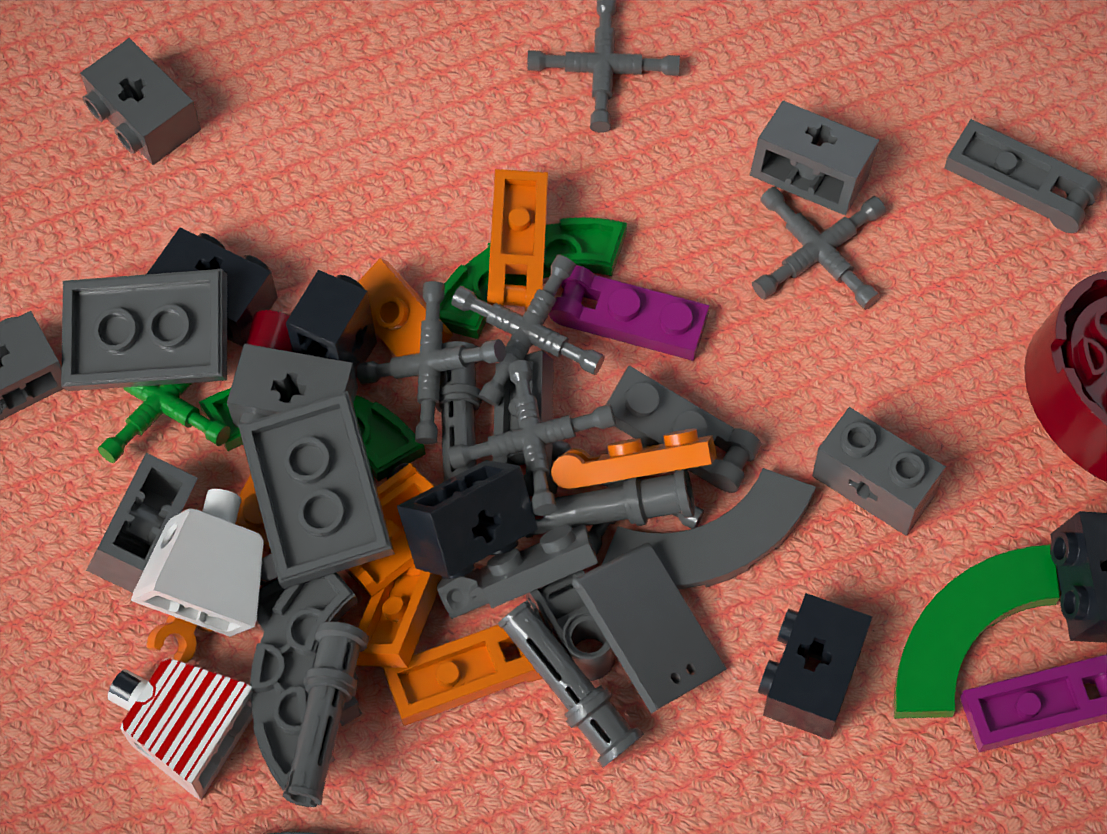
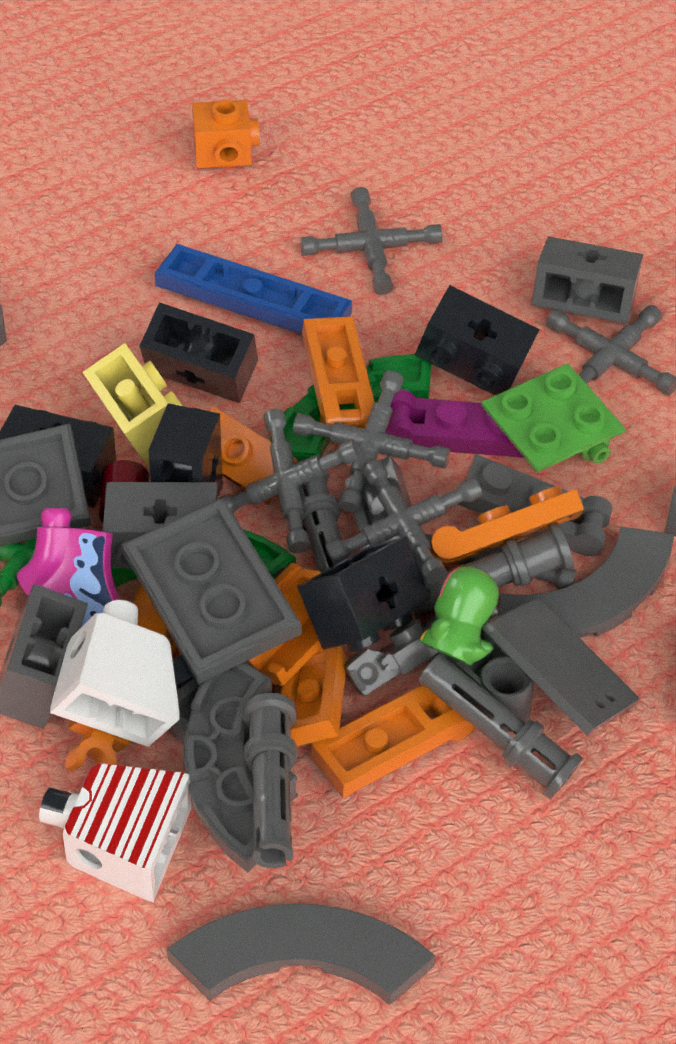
camera: 15 degrees left, 15 degrees down
(193, 433) = (71, 562): none -> dark pink arm
(301, 236) = (131, 395): none -> light yellow brick
(381, 189) = (200, 352): none -> black brick
(458, 113) = (246, 289): none -> blue plate
(553, 562) = (462, 610): none -> bright green animal
(664, 197) = (476, 341): none -> black brick
(727, 329) = (555, 419): none -> bright green hinge

